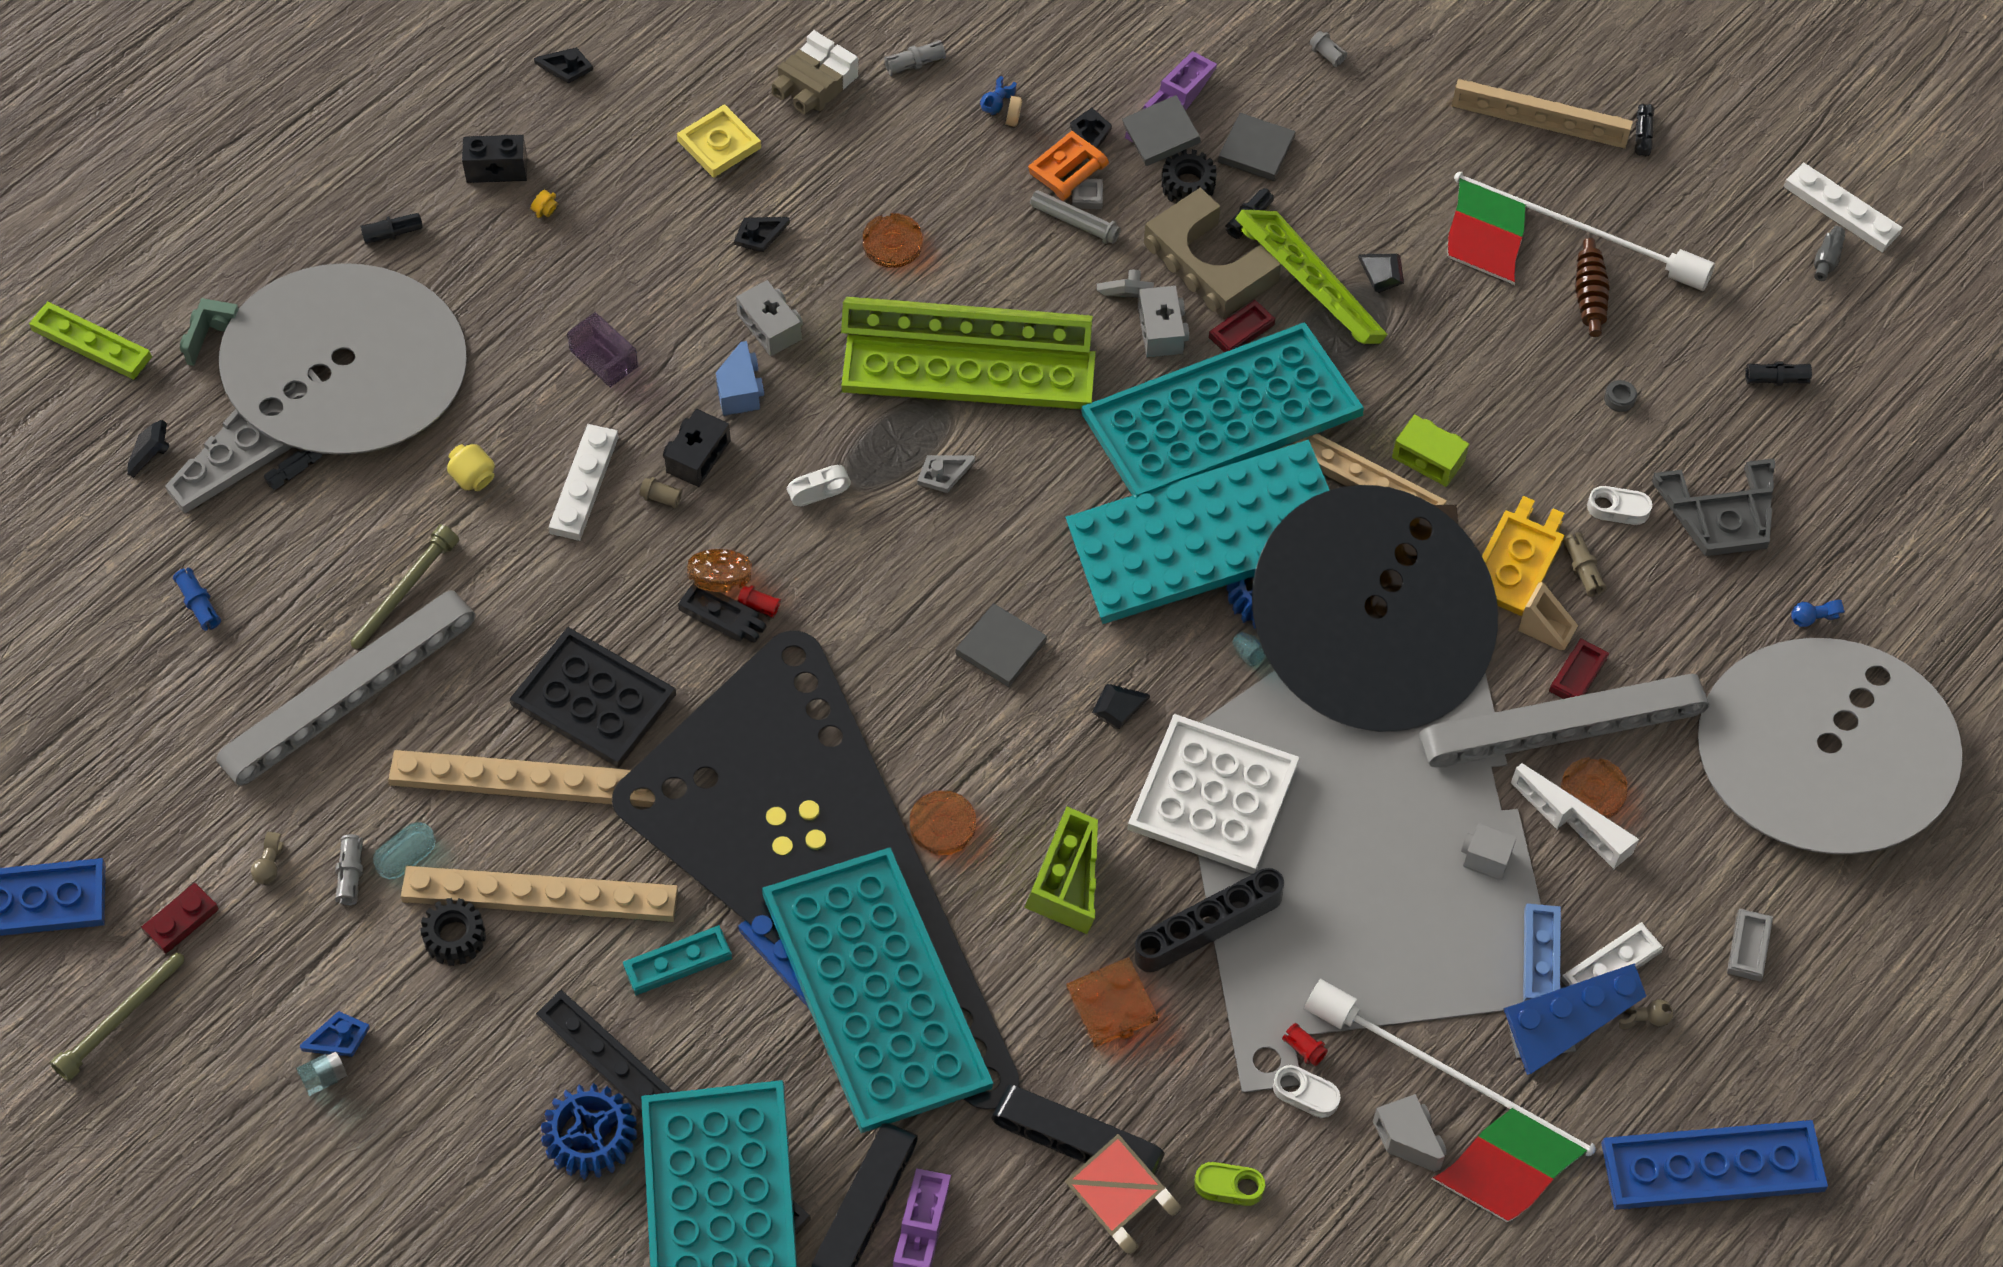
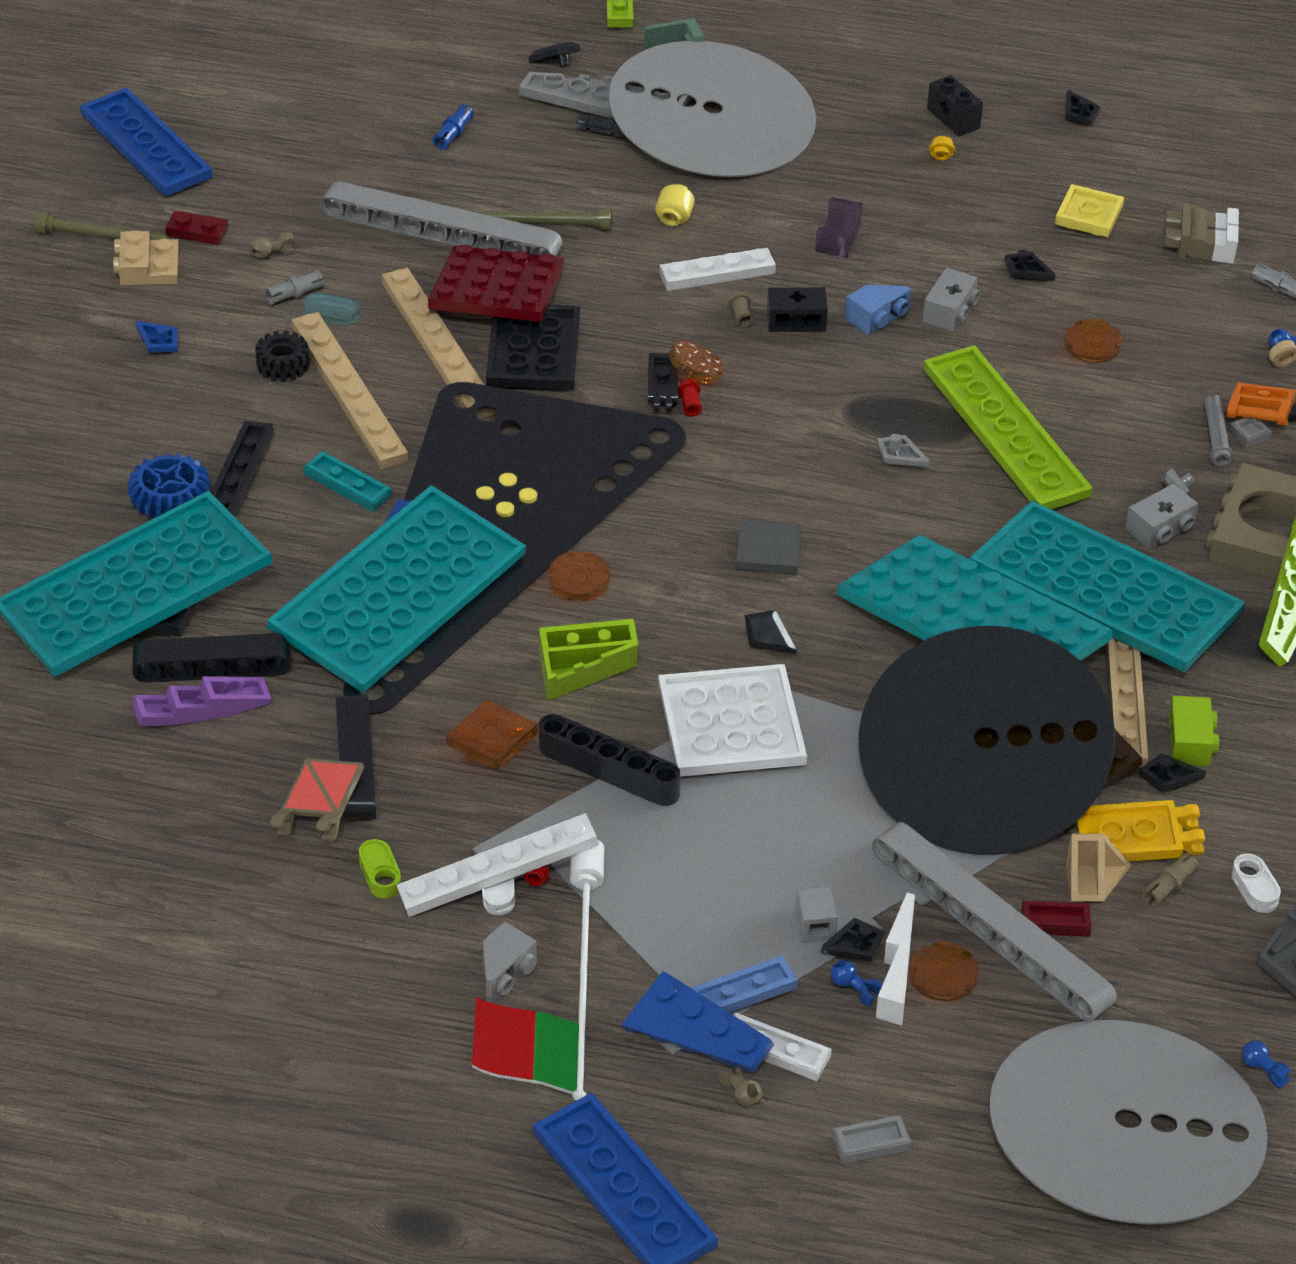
camera: 60 degrees right, 15 degrees down
(202, 990) = (145, 260): none -> tan plate
(321, 1072) = (121, 338): clear light blue piece -> none
(391, 227) = (846, 85): black axle -> none
(482, 682) = (496, 283): none -> dark red plate
(818, 485) = (817, 385): white piece -> none
(967, 324) = (1046, 405): lime brick -> none
(1242, 327) = (1211, 571): dark red tile -> none
(1298, 1081) = (497, 865): none -> white plate
(1464, 492) = (1170, 773): none -> black piece
(1531, 837) = (855, 940): none -> black piece
(1565, 866) = (845, 975): none -> blue arm

